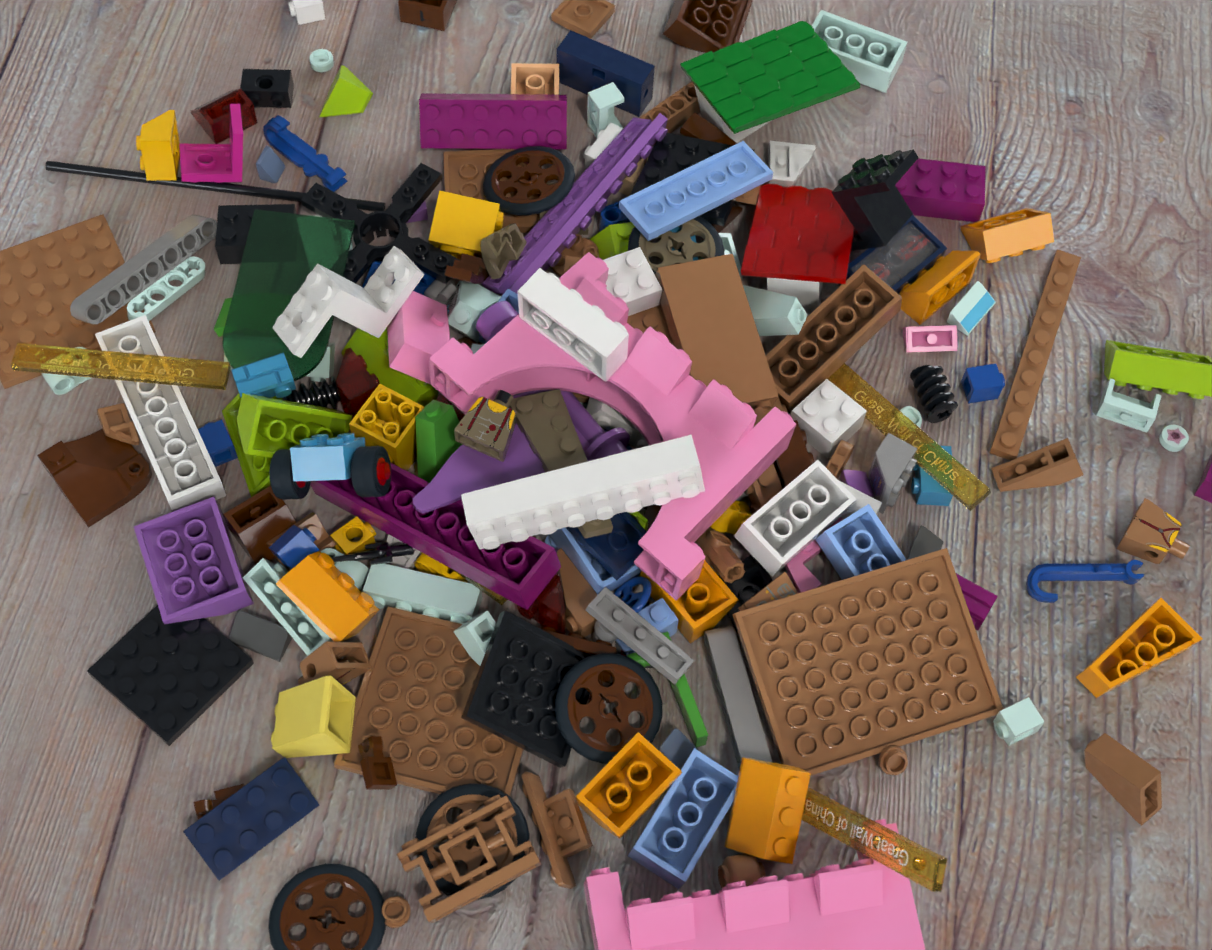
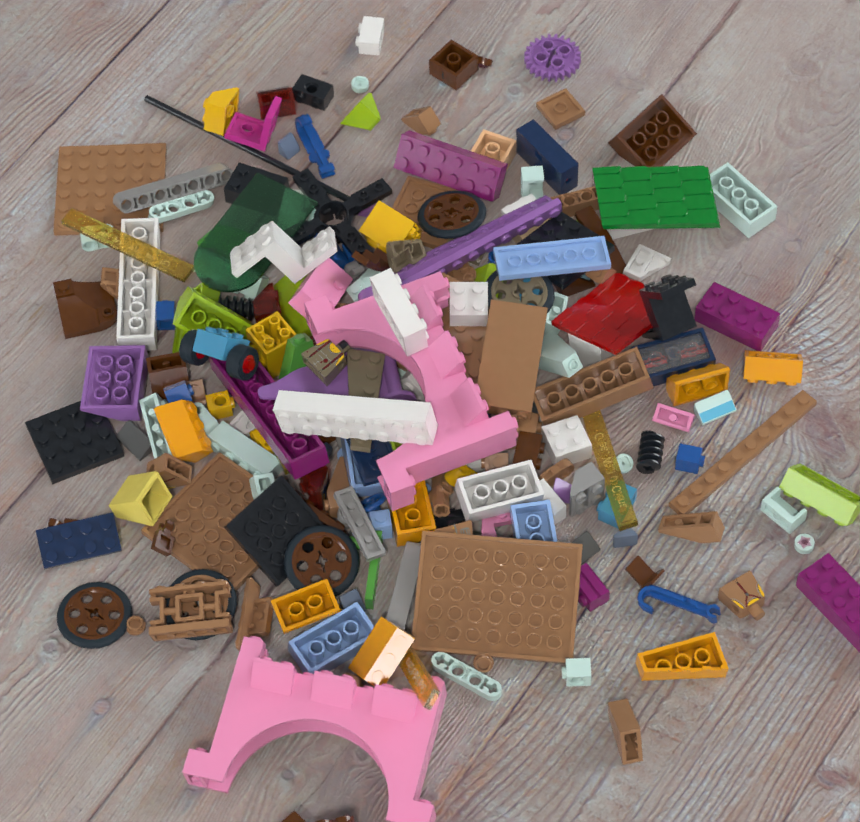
camera: 30 degrees right, 5 degrees down
(265, 377) = (209, 282): dark azure brick -> none
(382, 553) = (228, 417): black piece -> none
(424, 77) = (422, 120): none -> medium nougat slope
(880, 784) = (465, 677): none -> light aqua beam
(969, 517) = (625, 538): none -> sand blue slope
(1018, 555) = (642, 572): none -> reddish brown bracket

